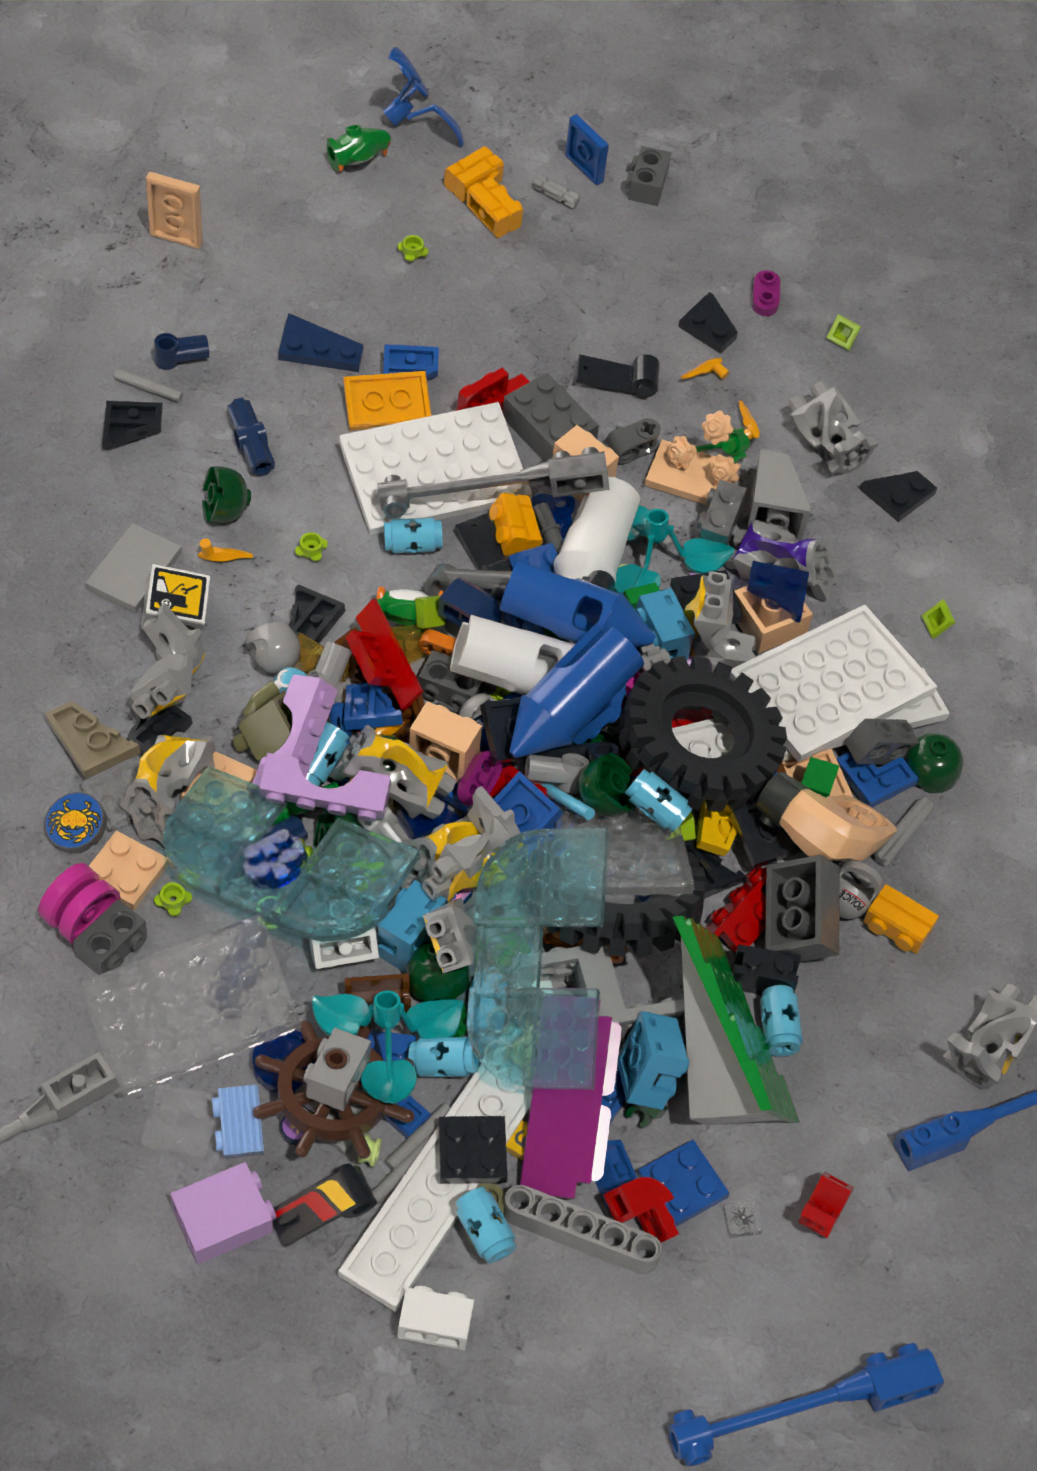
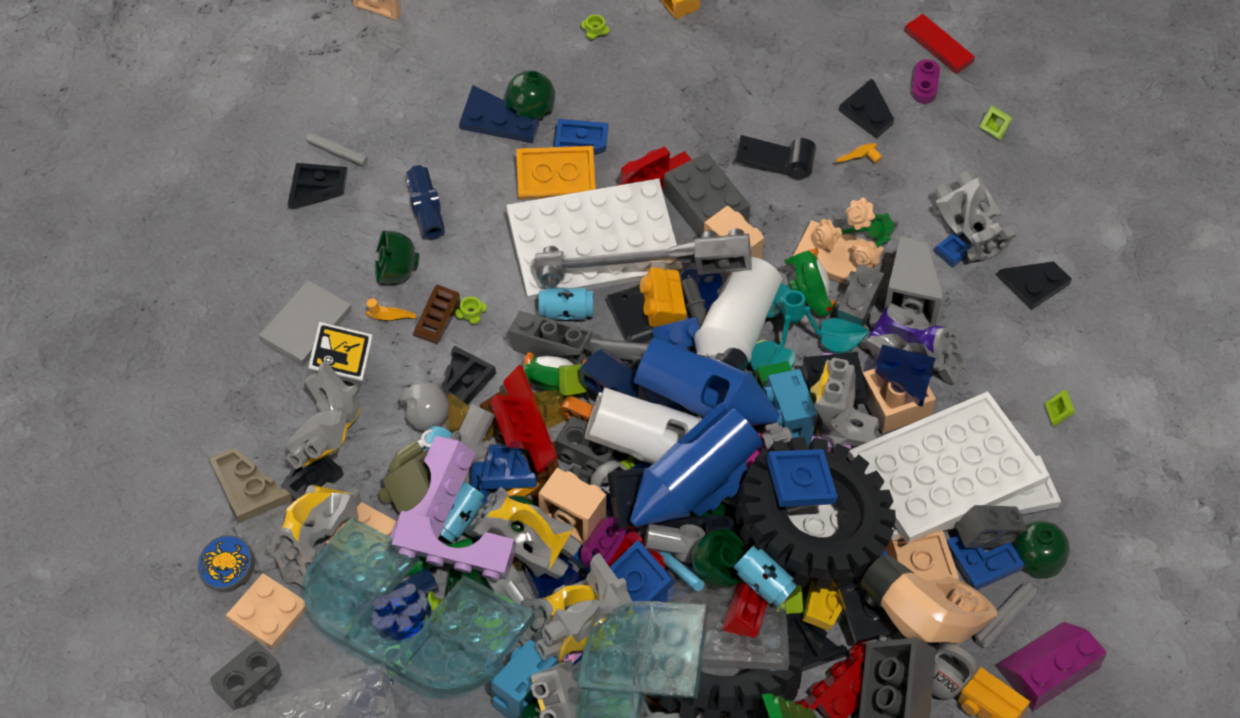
camera: 10 degrees right, 0 degrees up
(76, 900) = (217, 639): dark pink wheel -> none
(171, 350) = (360, 117): dark blue piece -> none
(171, 890) = (308, 633): lime plate -> none
(281, 536) = (441, 298): none -> reddish brown slope
(346, 951) = (461, 703): white brick -> none
(352, 320) = (530, 94): none -> dark green cylinder
(397, 569) = (546, 336): none -> dark grey slope
(632, 442) = (782, 222): dark grey piece -> none
(640, 837) = (745, 611): none -> red slope
(670, 496) = (811, 281): none -> green animal
(688, 697) = (801, 478): none -> blue plate
(751, 427) = (898, 213): light orange bar -> none
(776, 254) = (939, 43): none -> red tile
(811, 464) = (952, 250): none -> blue tile
(820, 776) = (926, 560): green brick -> none
(957, 876) = (1052, 663): none -> magenta slope

